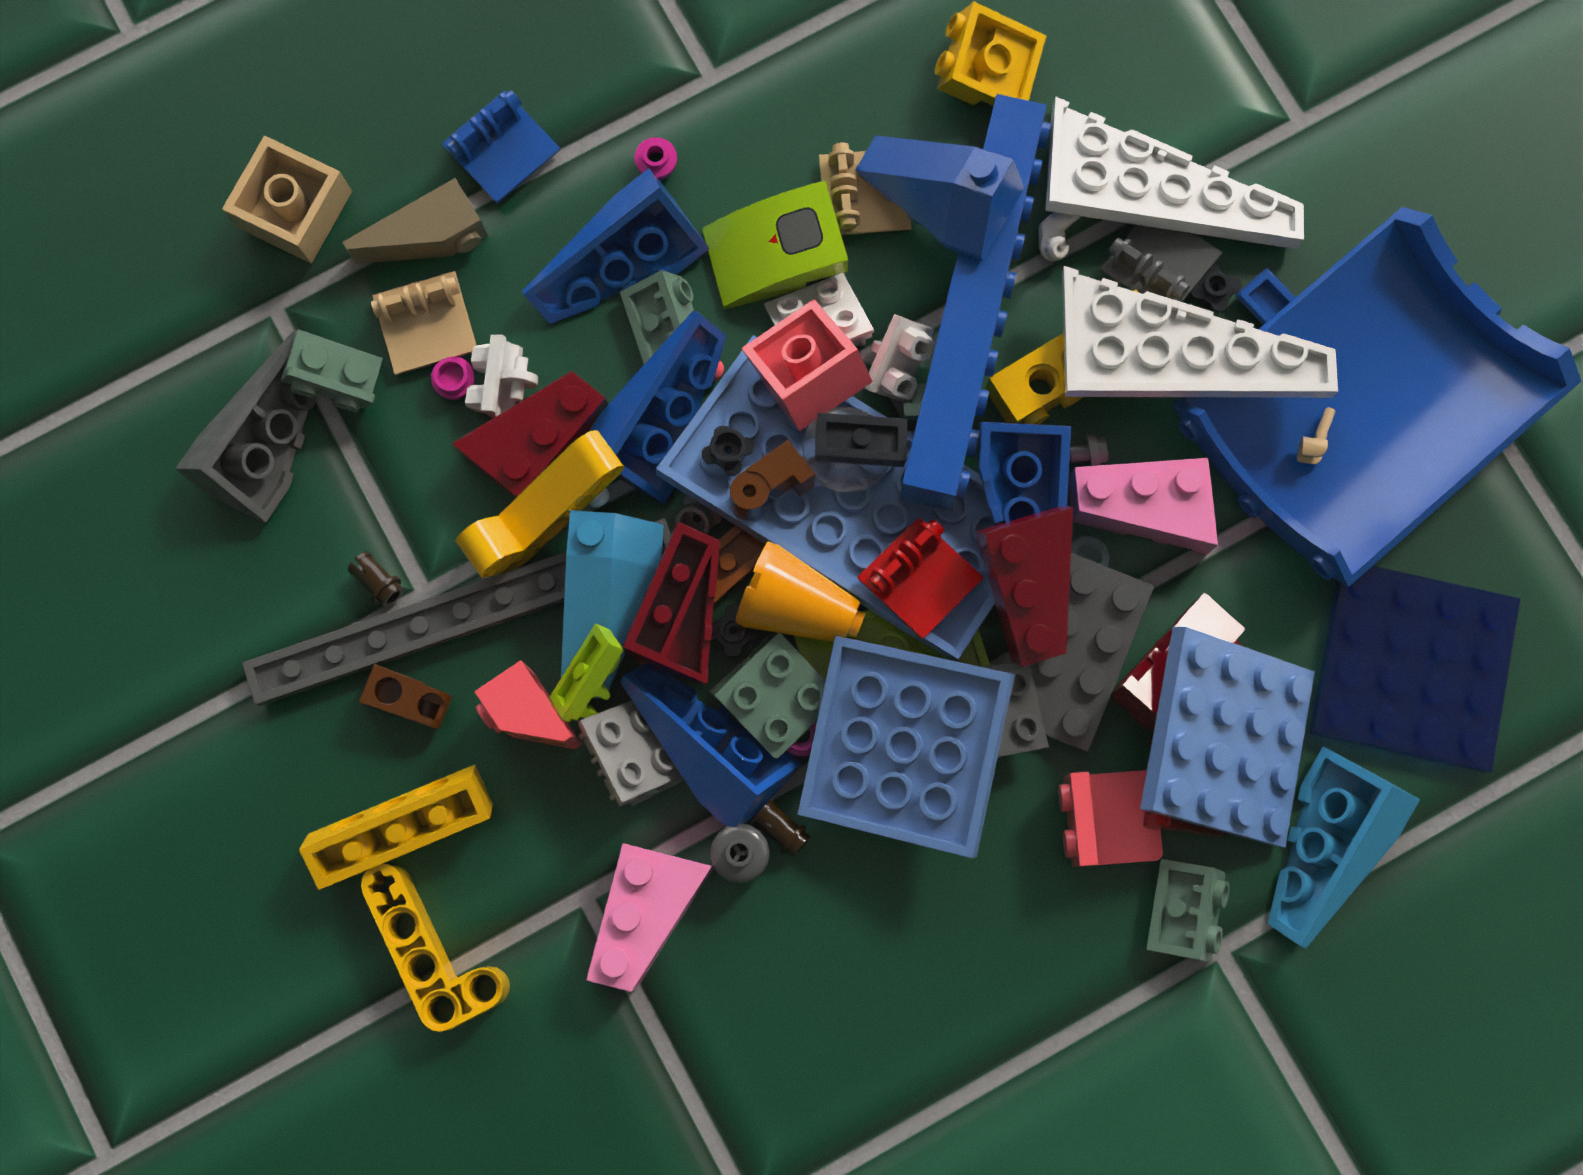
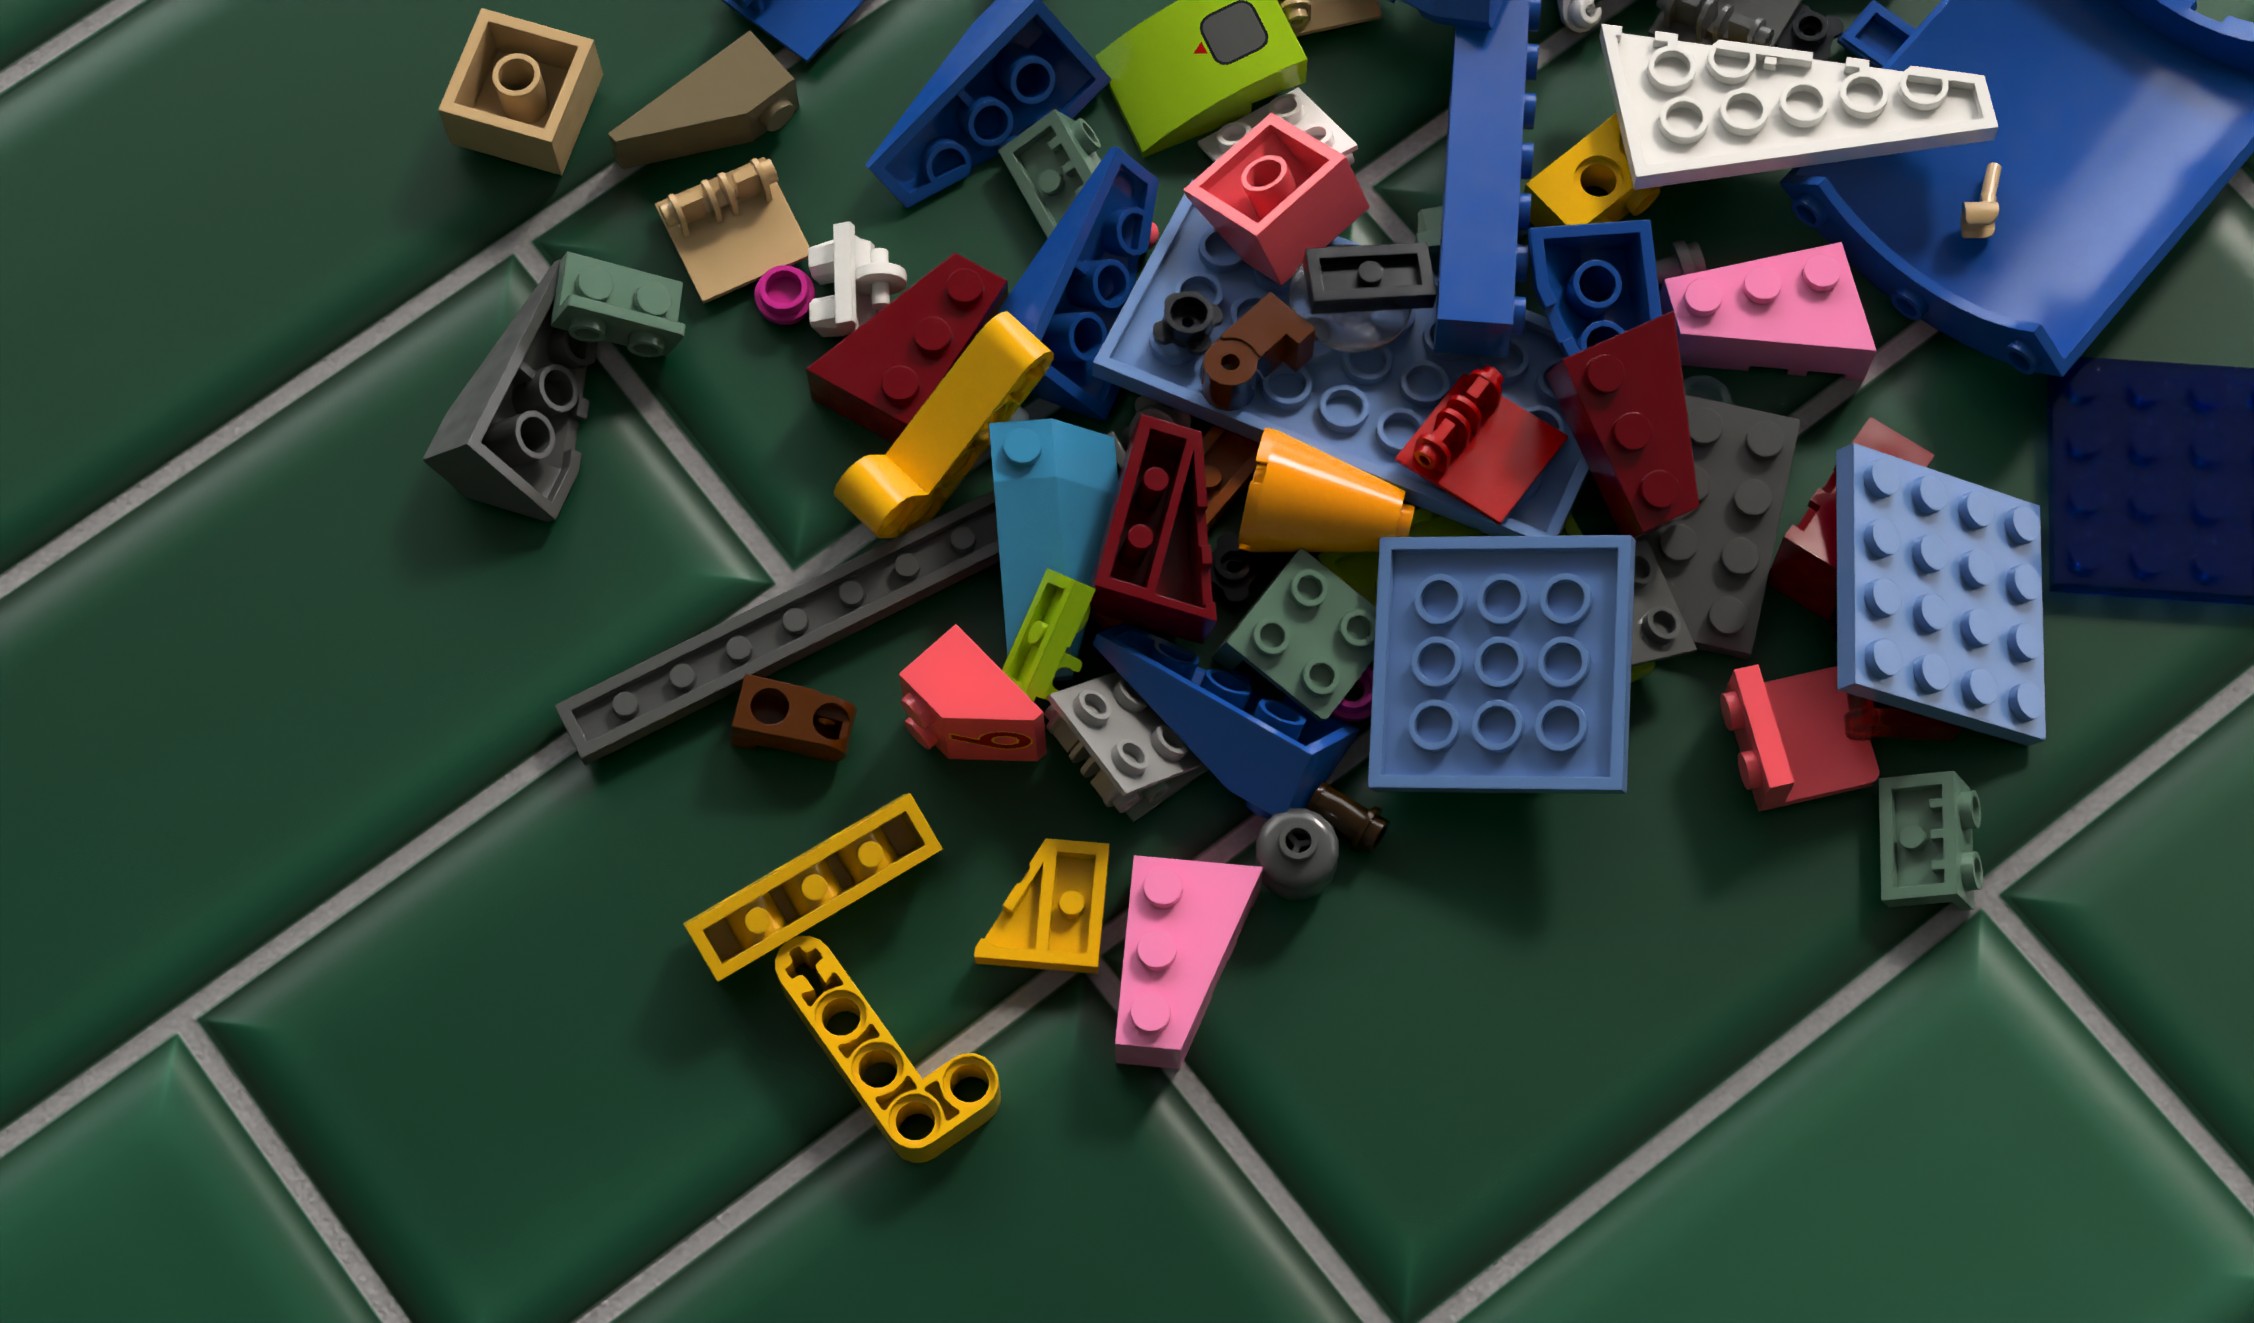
camera: 10 degrees left, 10 degrees down
(382, 586) = (734, 580): dark brown pin -> none
(565, 866) = (1054, 912): none -> yellow wing
(899, 358) = (1399, 178): white hips -> none
(1339, 837) = (2118, 705): dark azure wedge -> none

